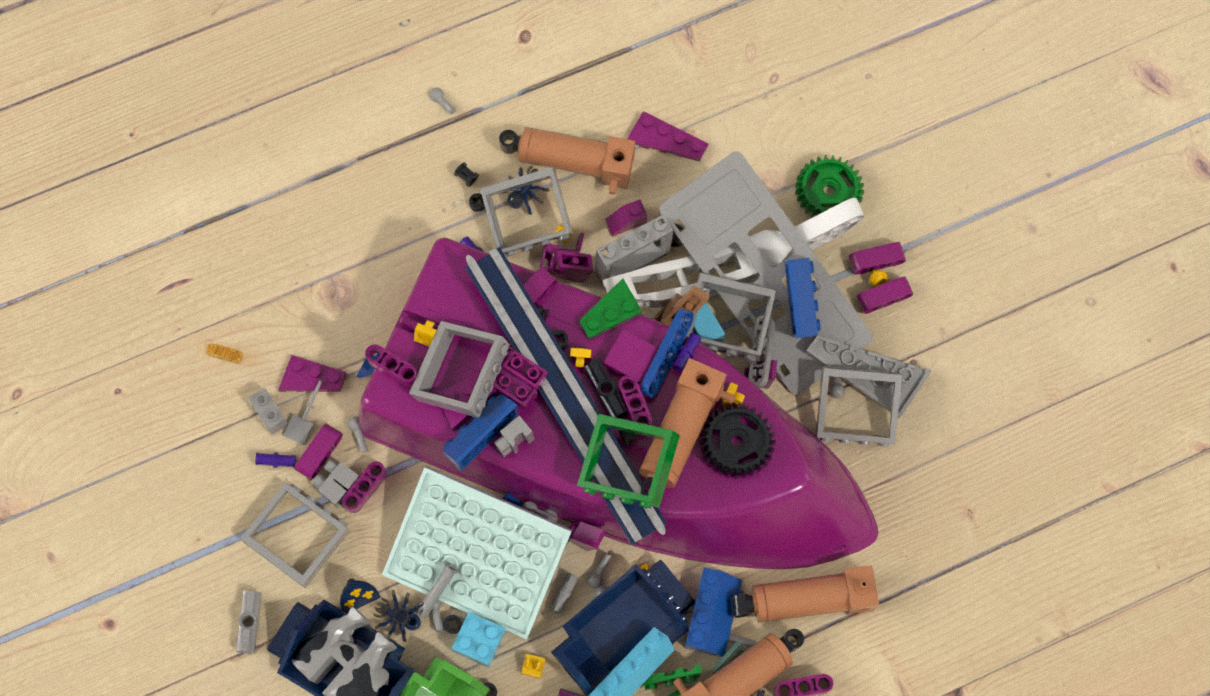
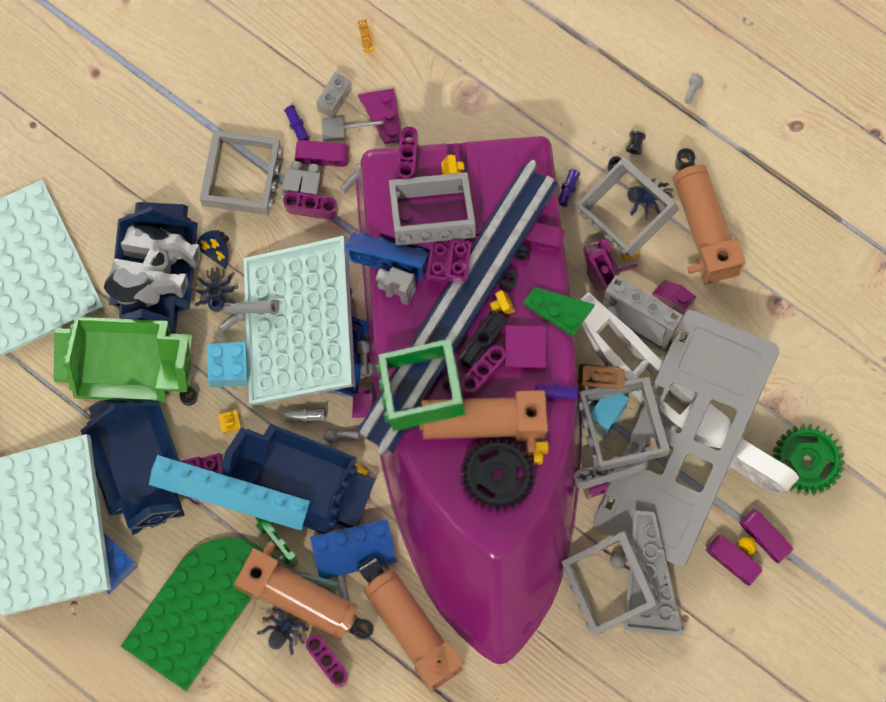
camera: 65 degrees right, 0 degrees up
(250, 609) = (138, 180): light grey piece -> none
(458, 622) = (227, 334): black bush -> none
(659, 135) = (771, 290): magenta wing -> none
(661, 360) = (537, 370): blue beam -> none
(801, 297) = (678, 477): blue slope -> none

